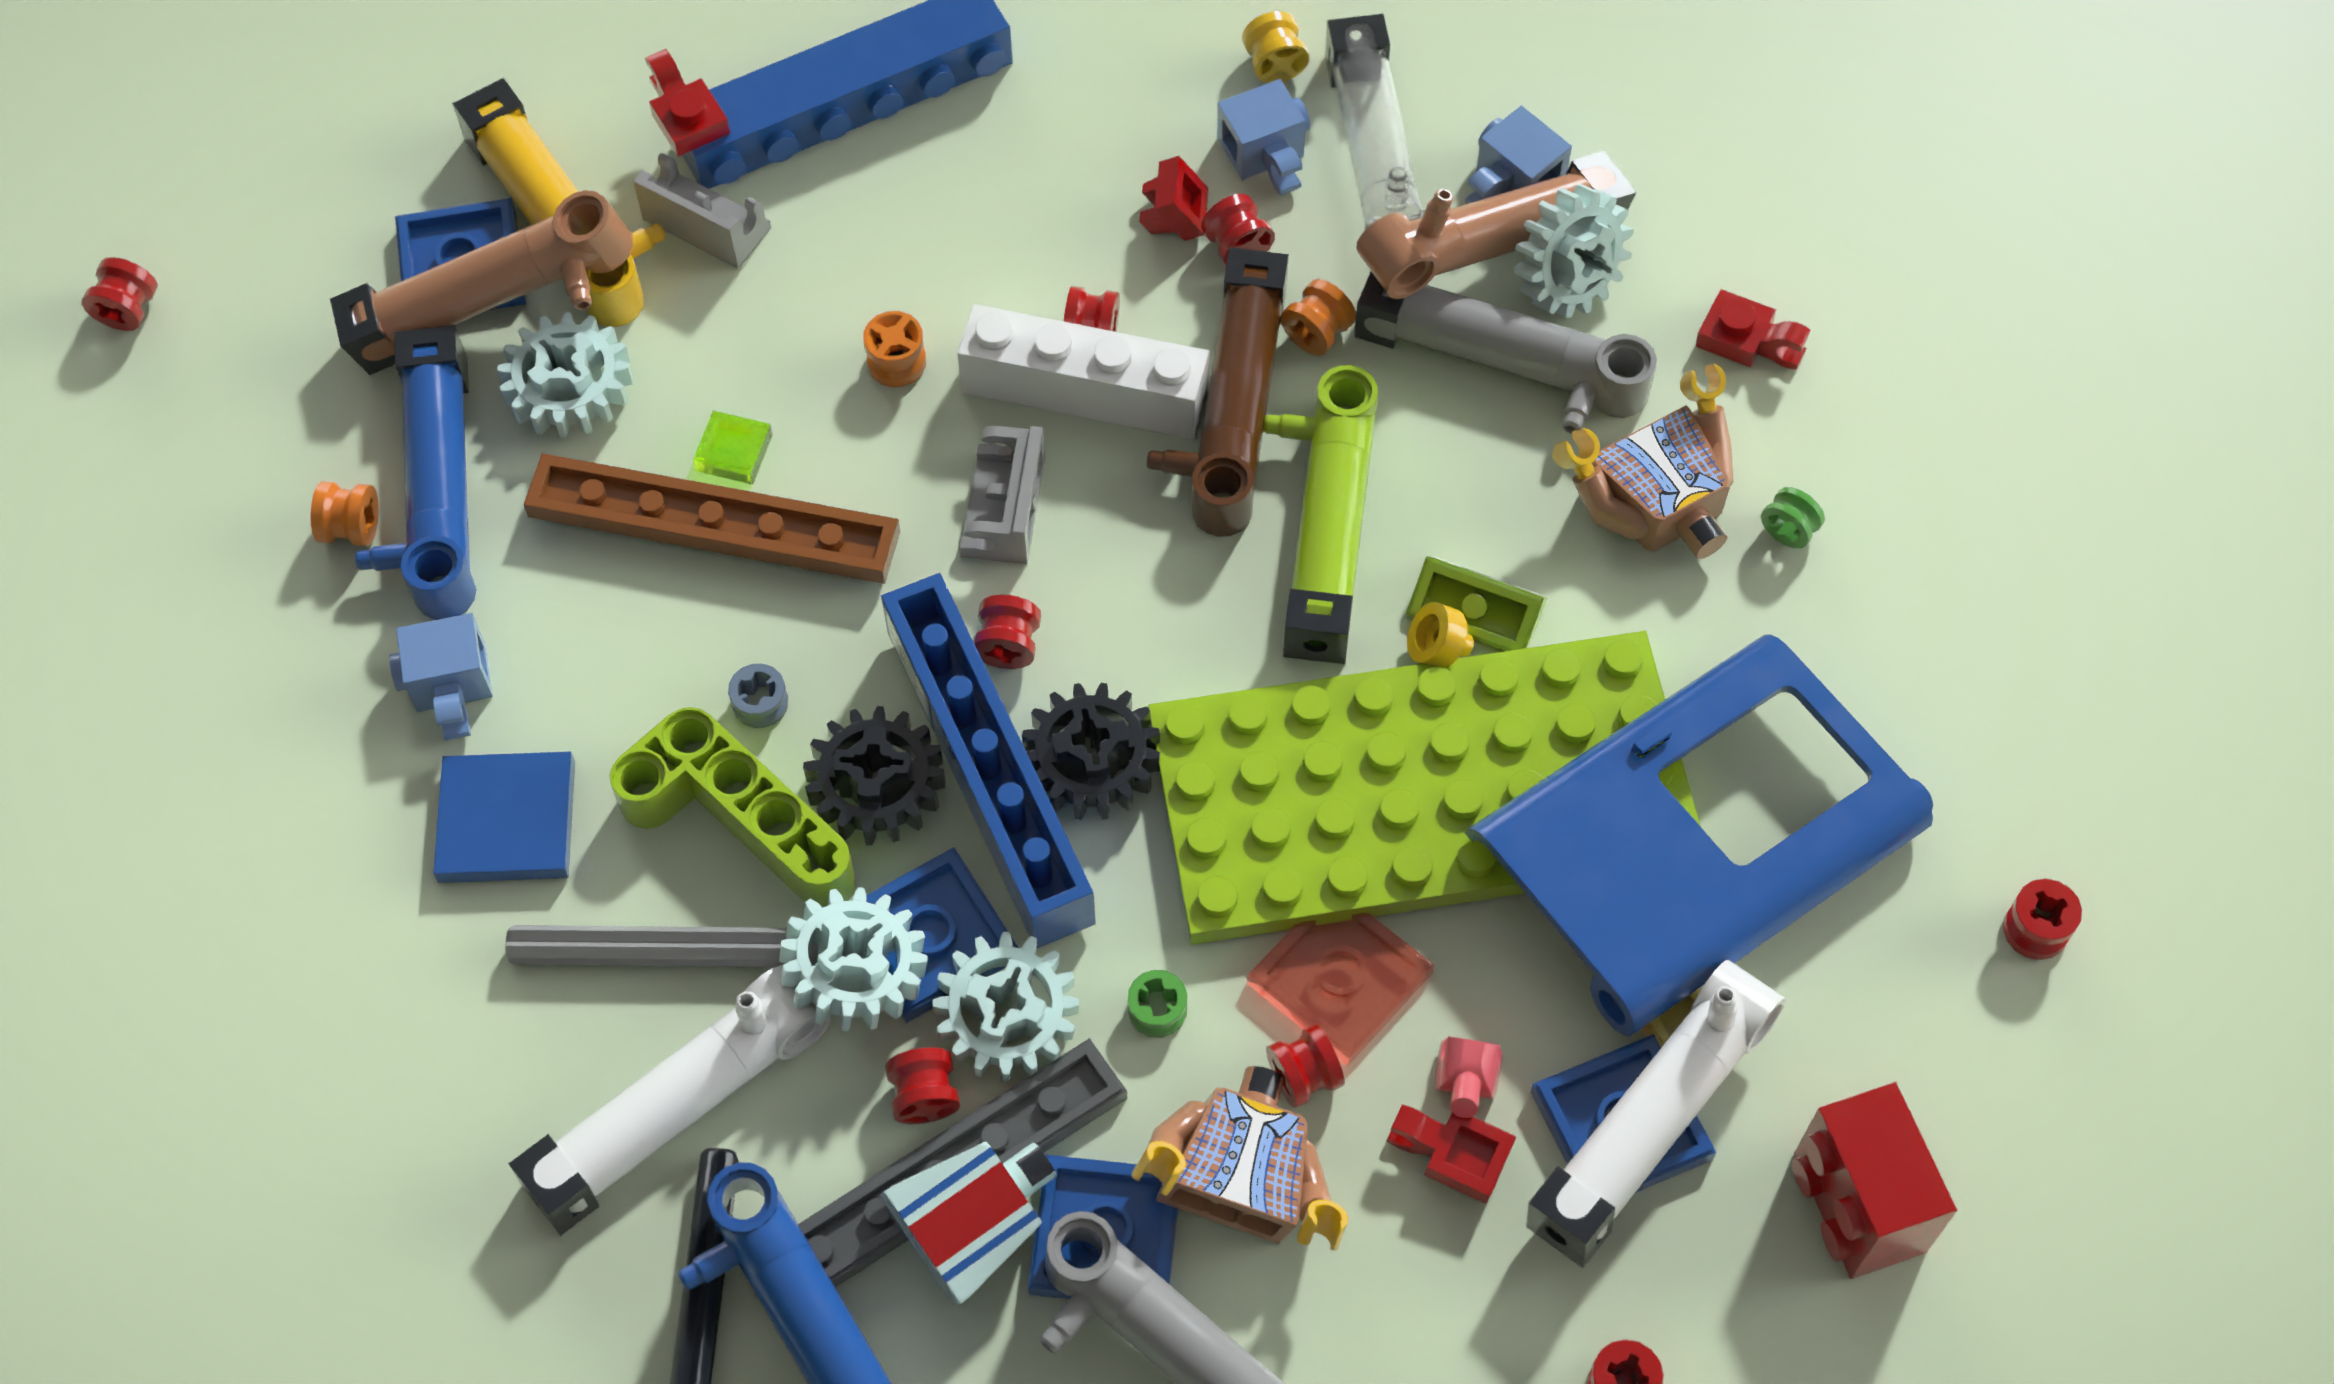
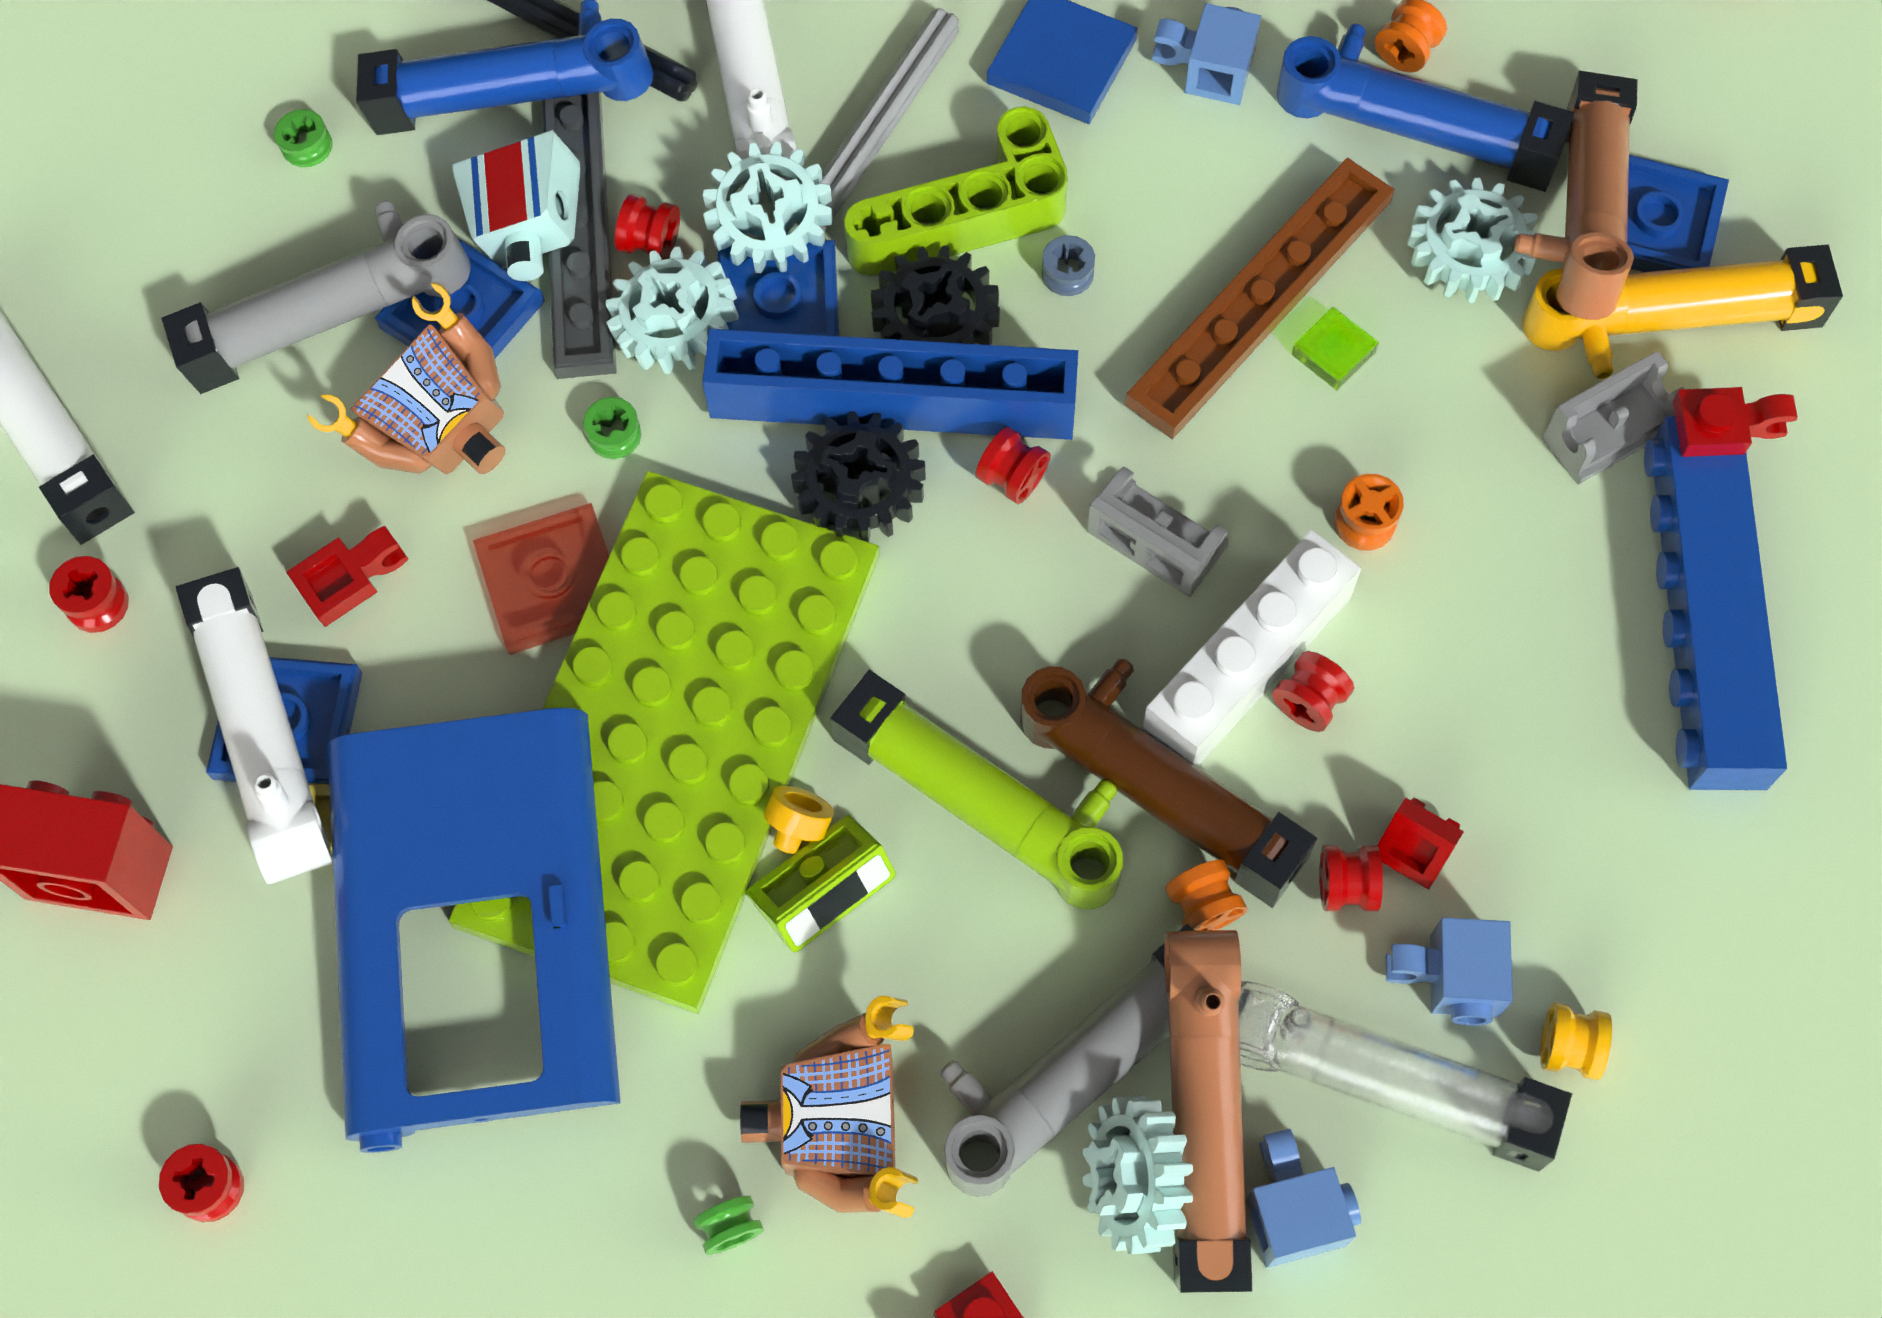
camera: 120 degrees right, 5 degrees up
(1306, 1065) = (482, 498): red wheel -> none
(1468, 1071) = (397, 620): coral piece -> none

